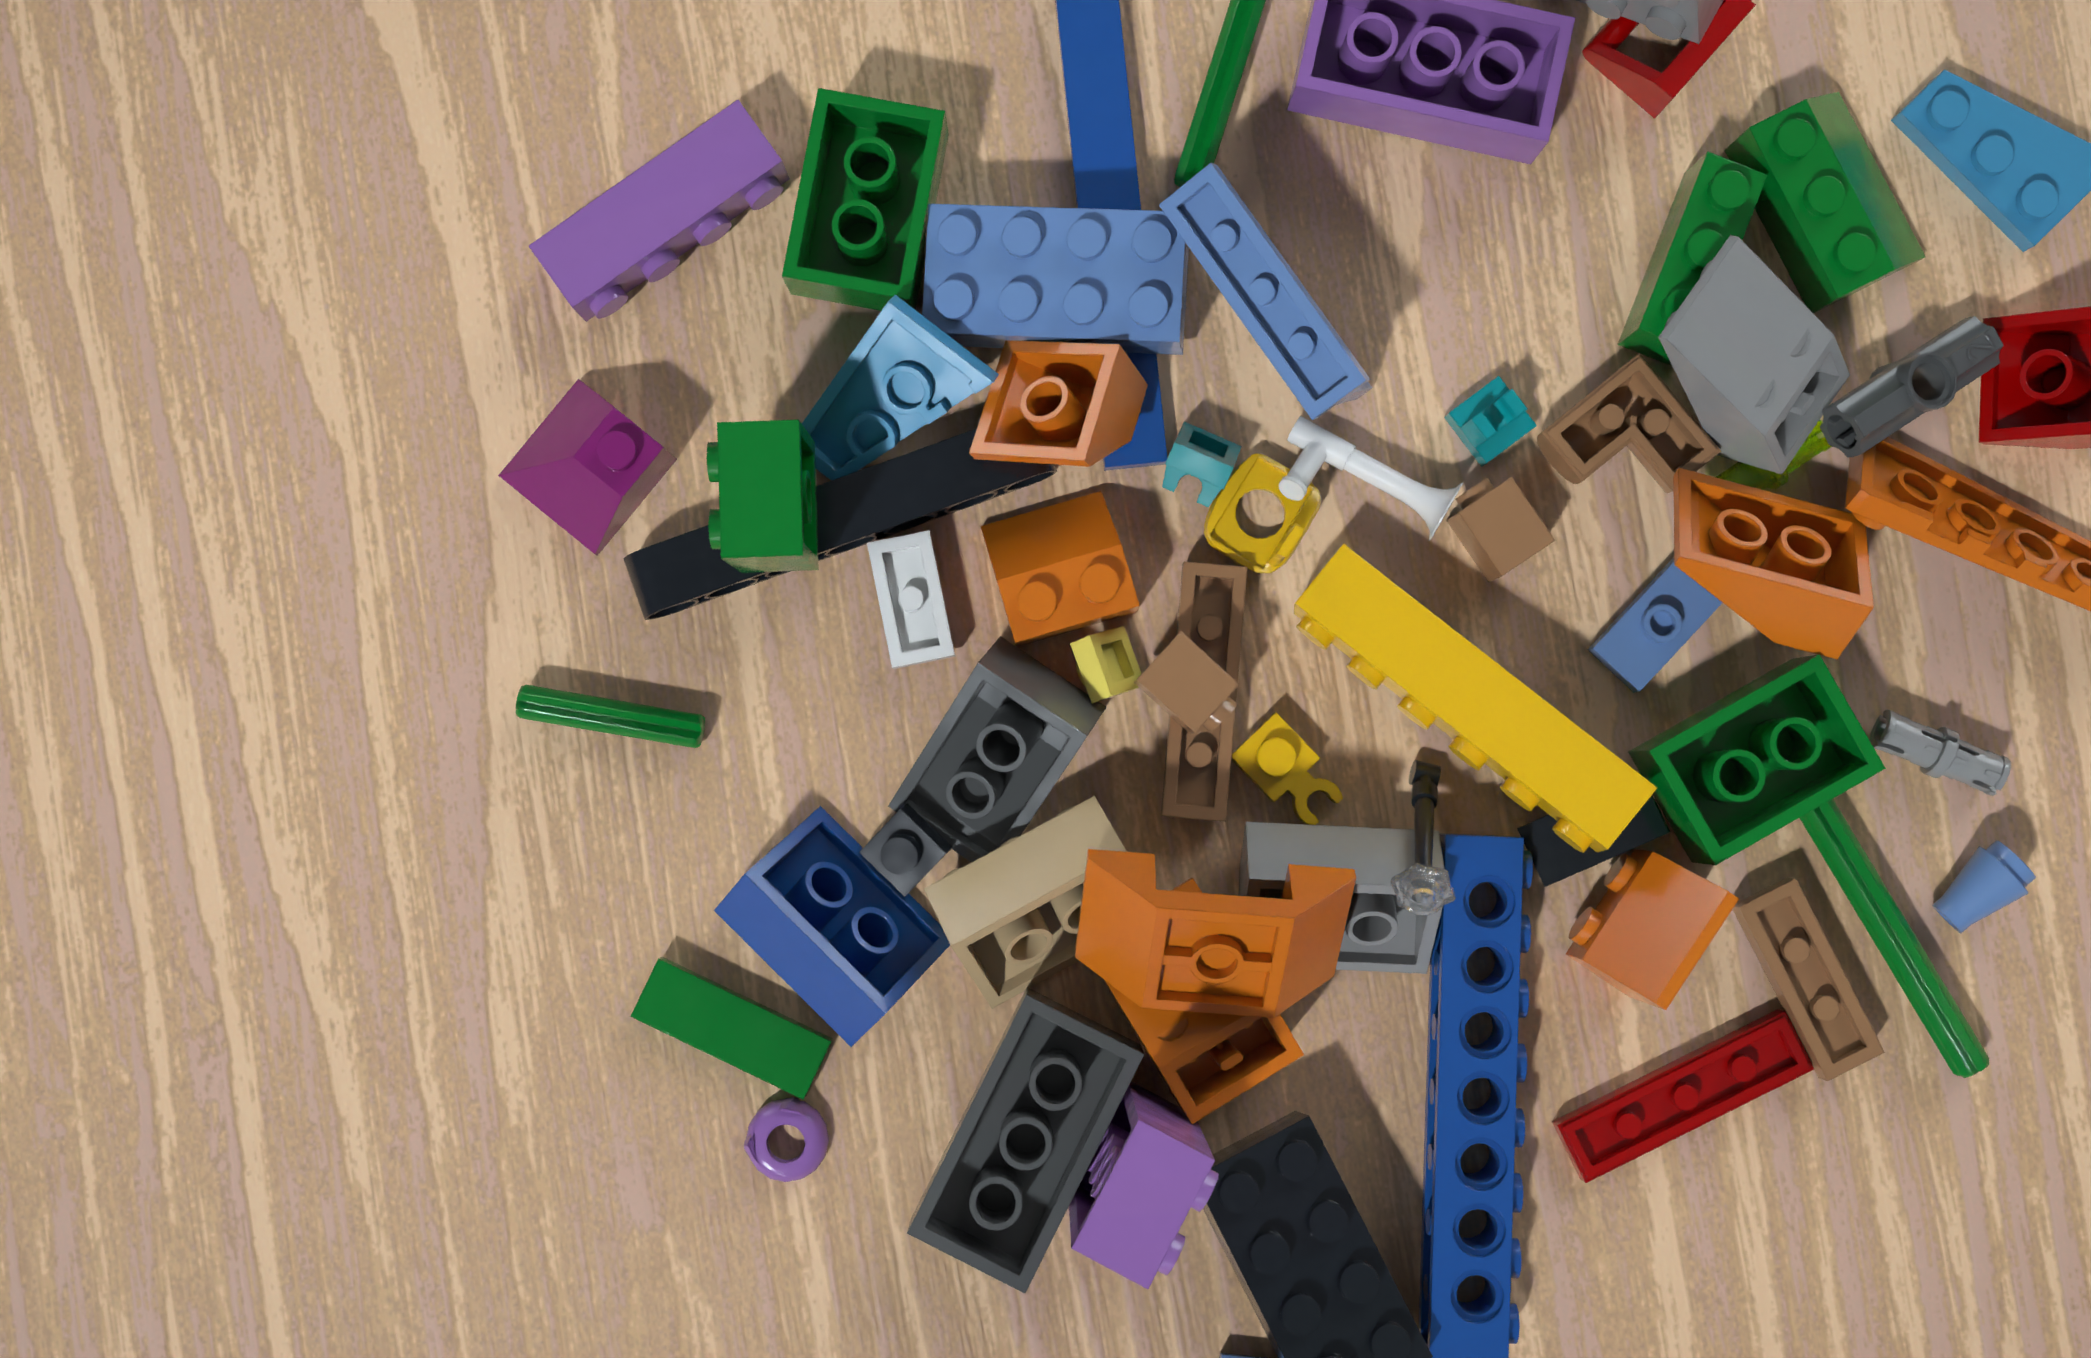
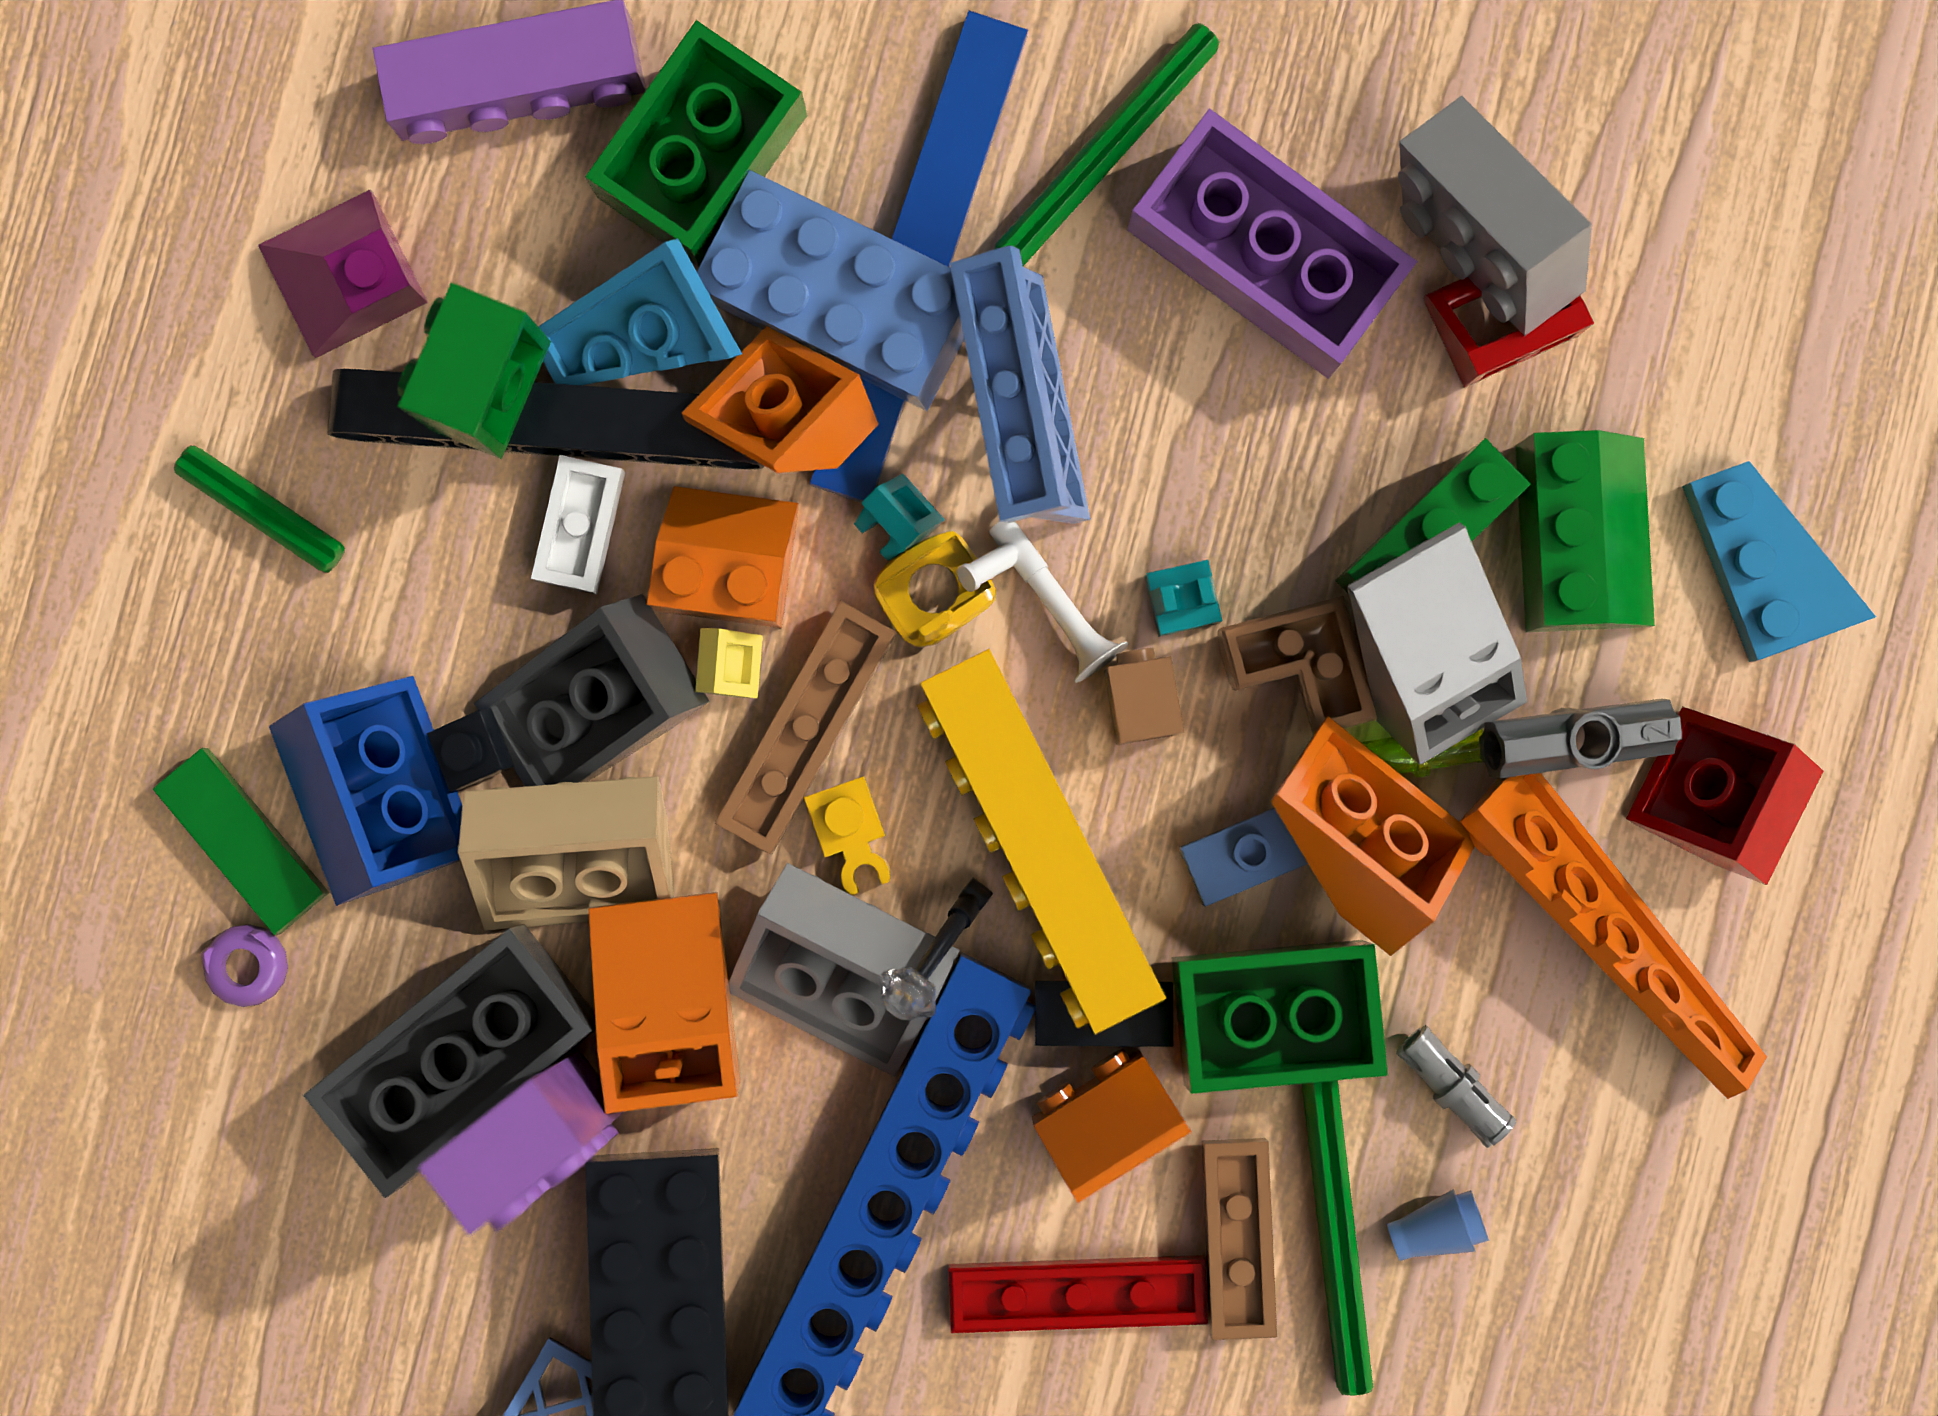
camera: 25 degrees right, 0 degrees up
(1189, 685) = (787, 714): medium nougat brick -> none
(1210, 947) = (692, 962): orange slope -> none

